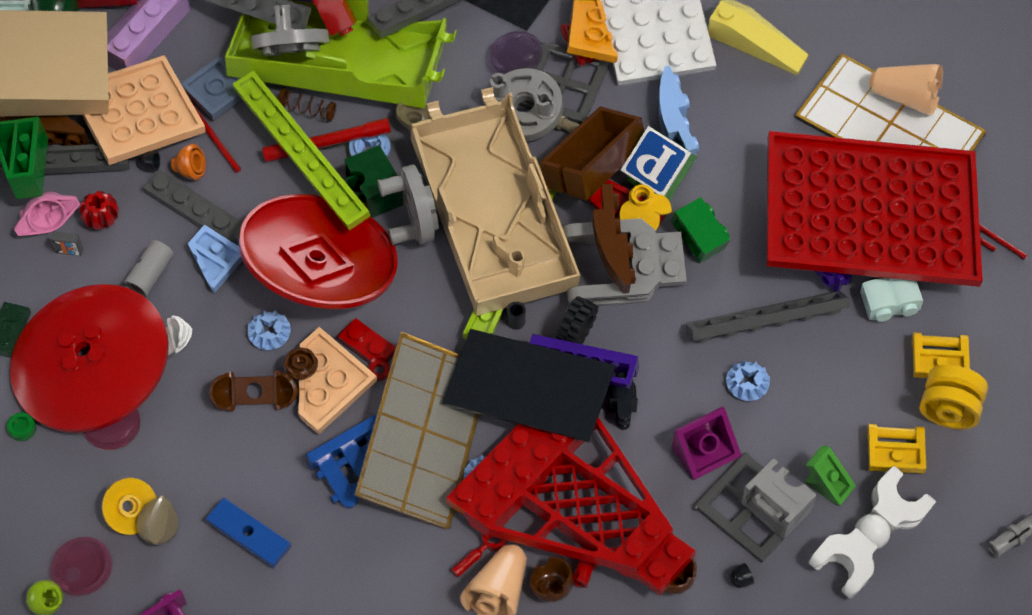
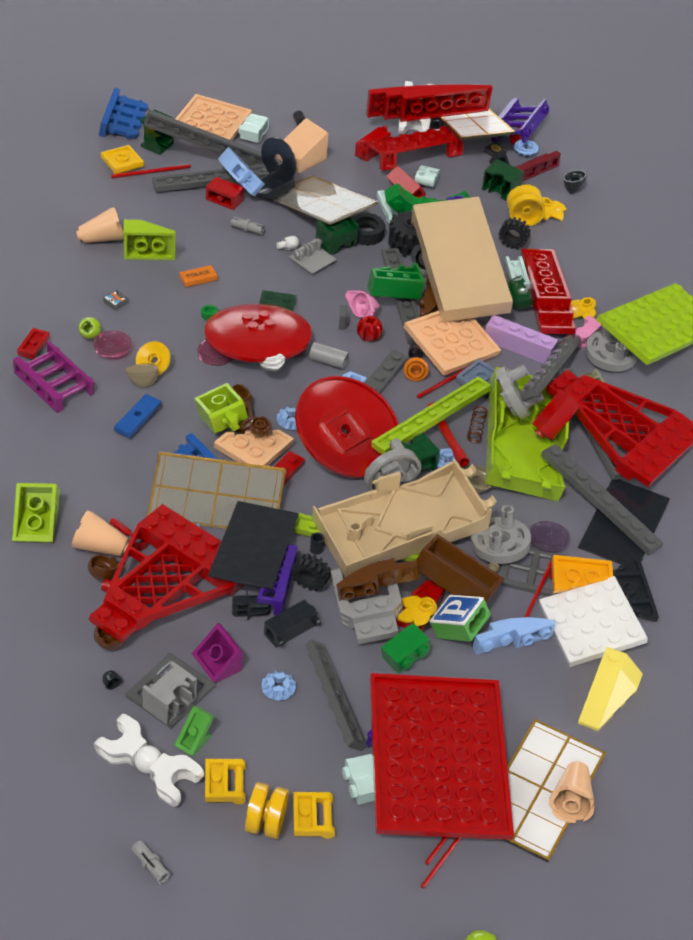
camera: 80 degrees right, 15 degrees down
(261, 411) = (221, 408): none -> lime hinge
(605, 81) = (538, 589): none -> red piece
(654, 356) = (290, 623): none -> black brick

